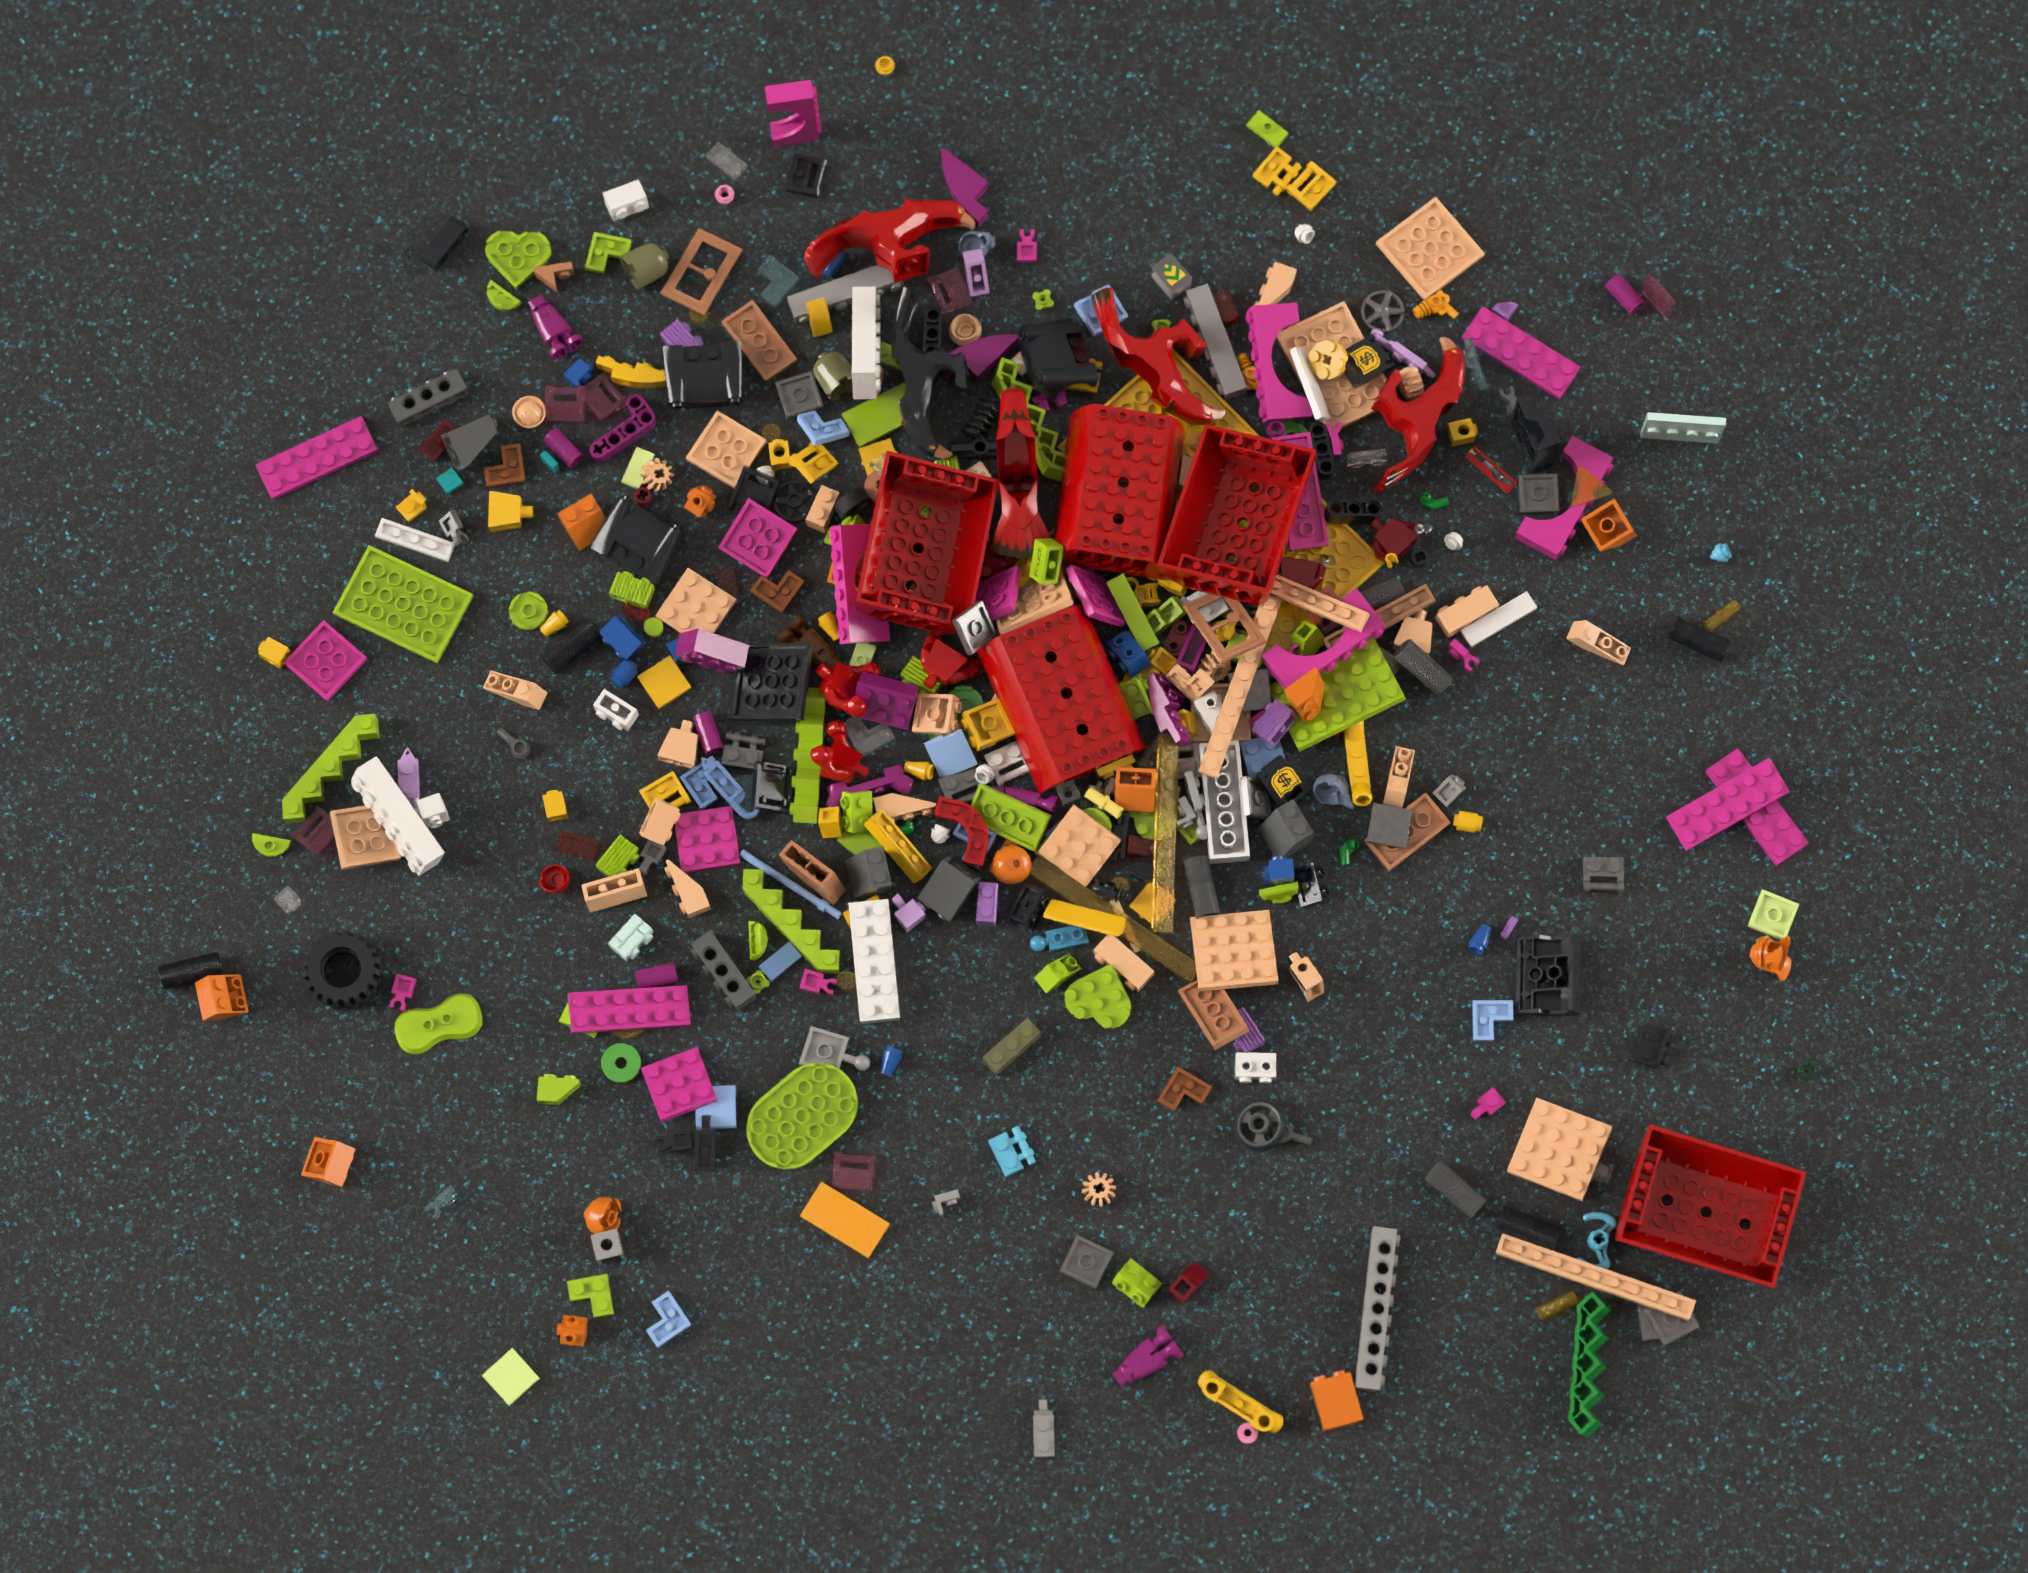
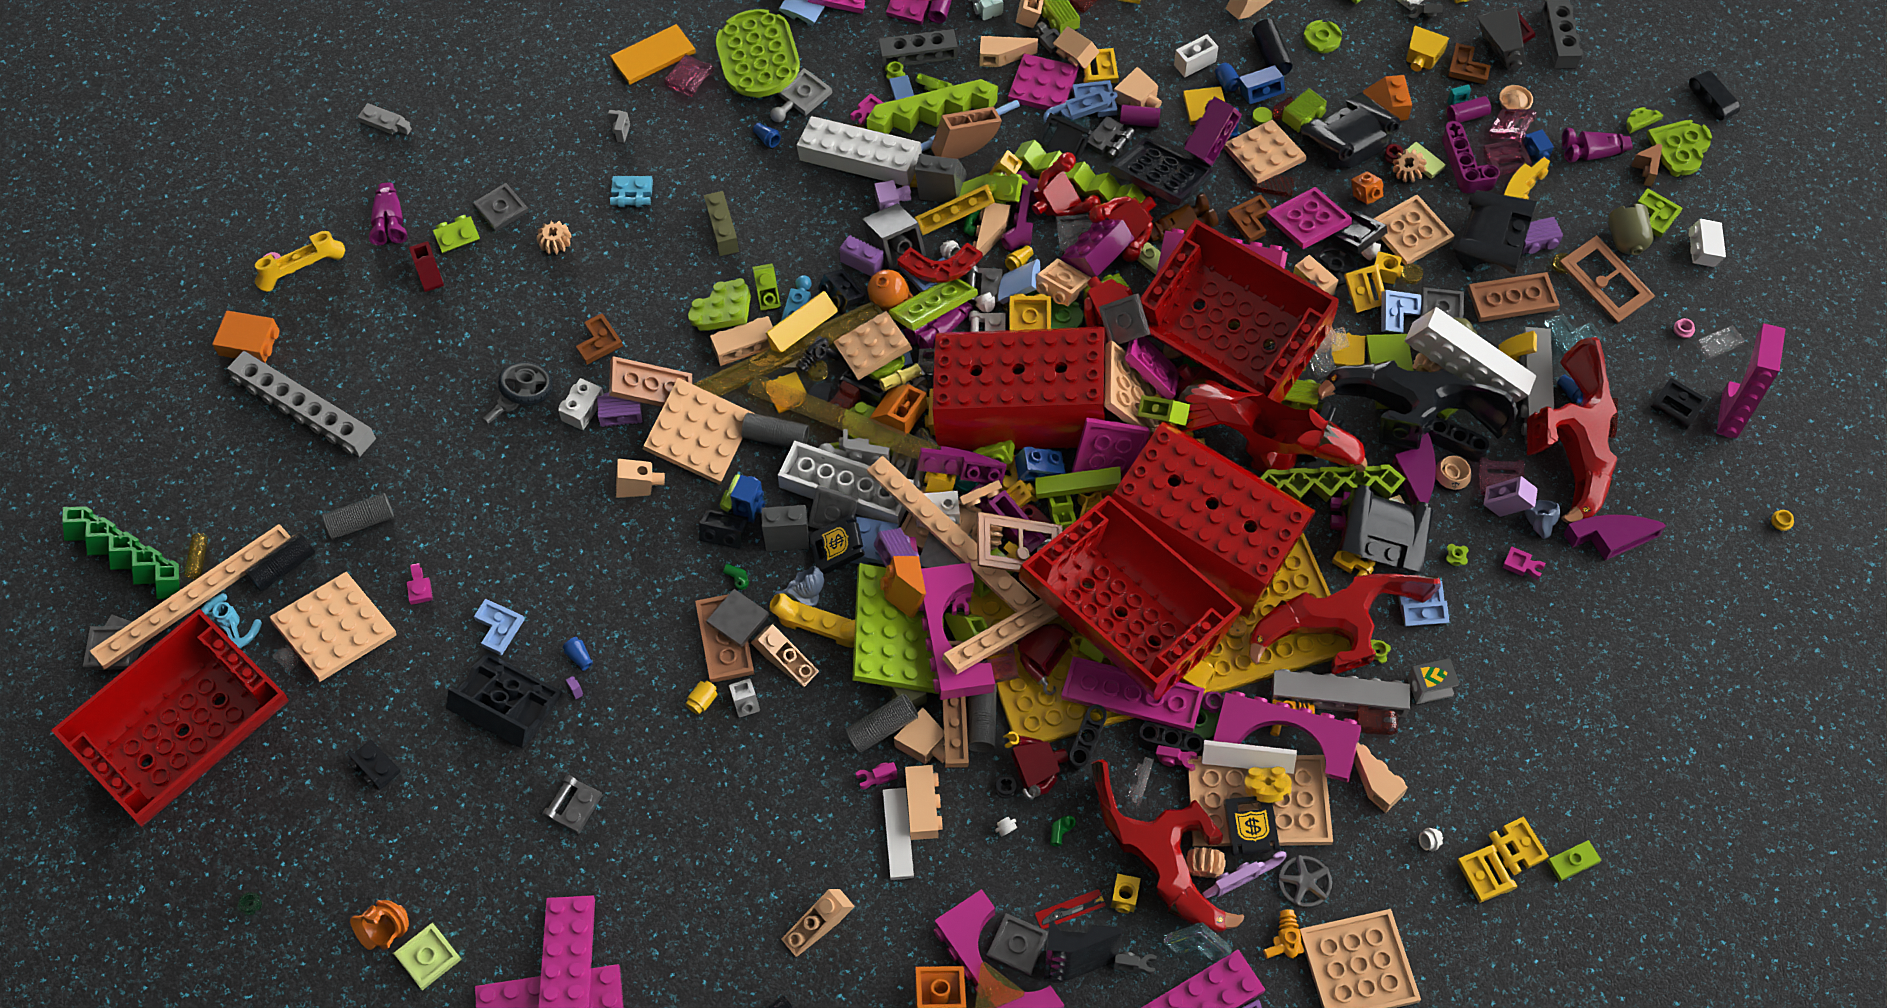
camera: 115 degrees right, 15 degrees down
(449, 481) = (1471, 24): teal tile -> none
(554, 623) = (1301, 47): yellow cone -> none

